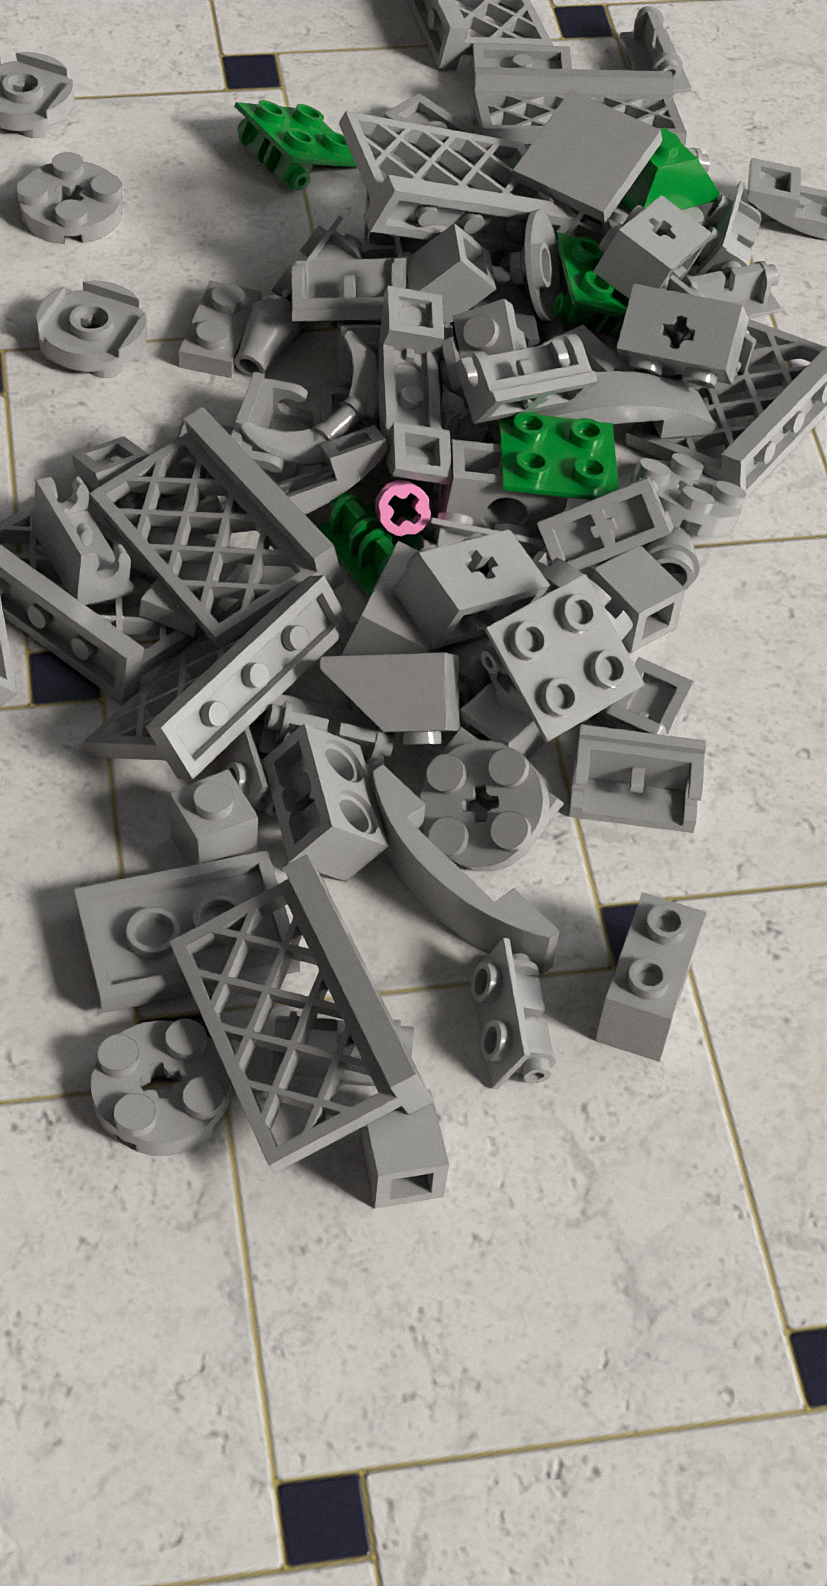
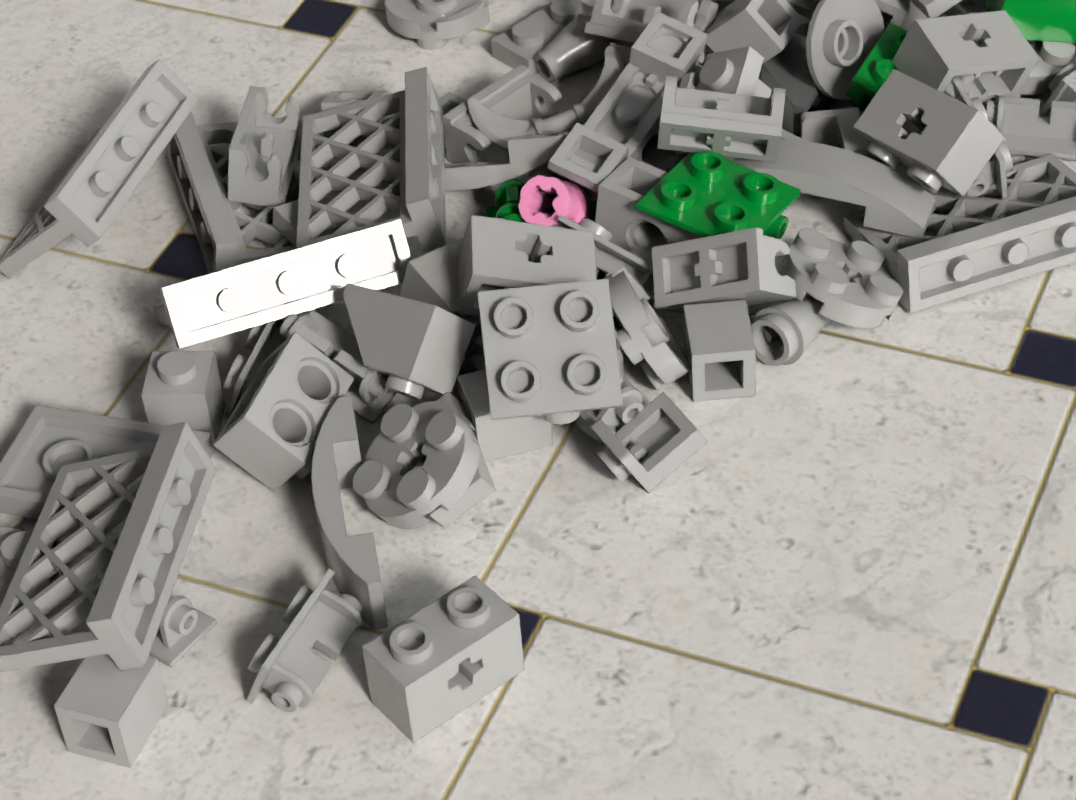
camera: 40 degrees right, 10 degrees down
(637, 778) = (588, 497): light grey hinge -> none

